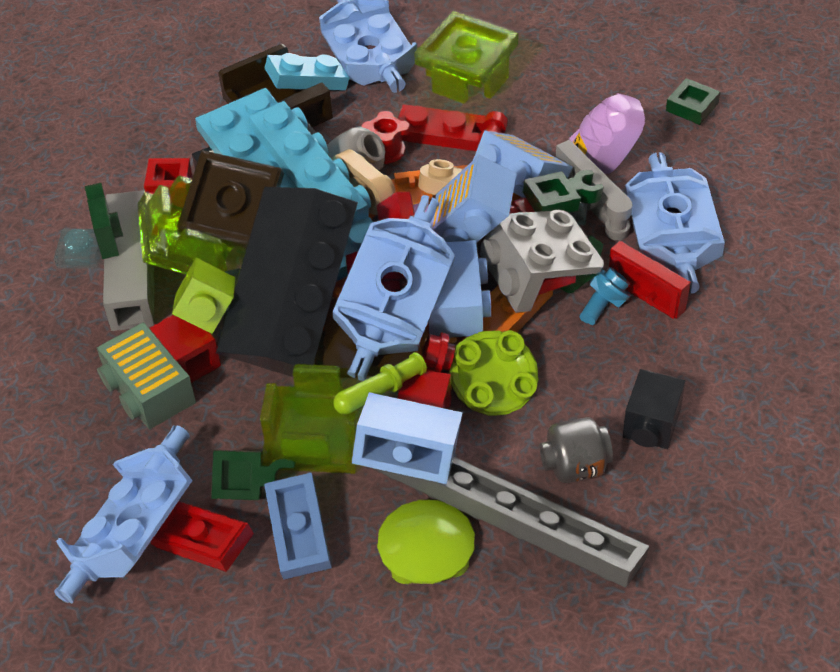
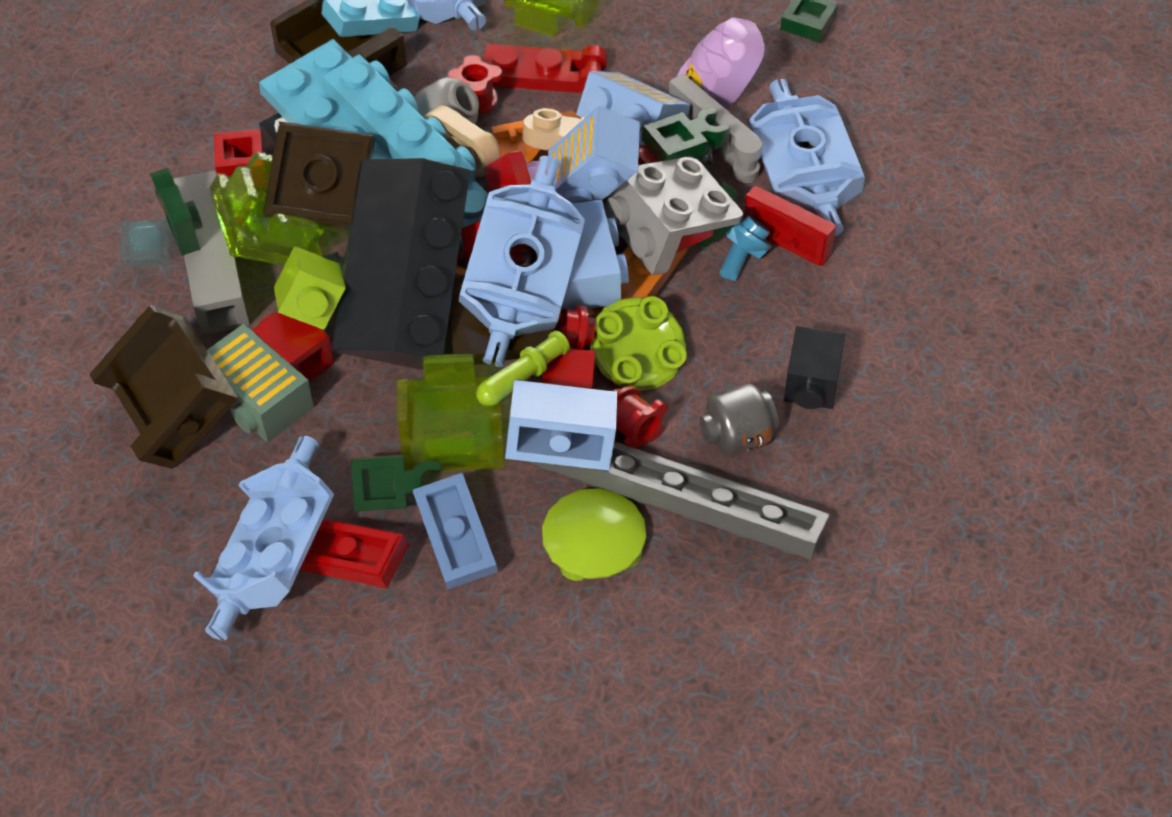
camera: 10 degrees left, 5 degrees up
(65, 369) = (165, 386): none -> dark brown panel
(481, 439) = (637, 418): none -> red brick

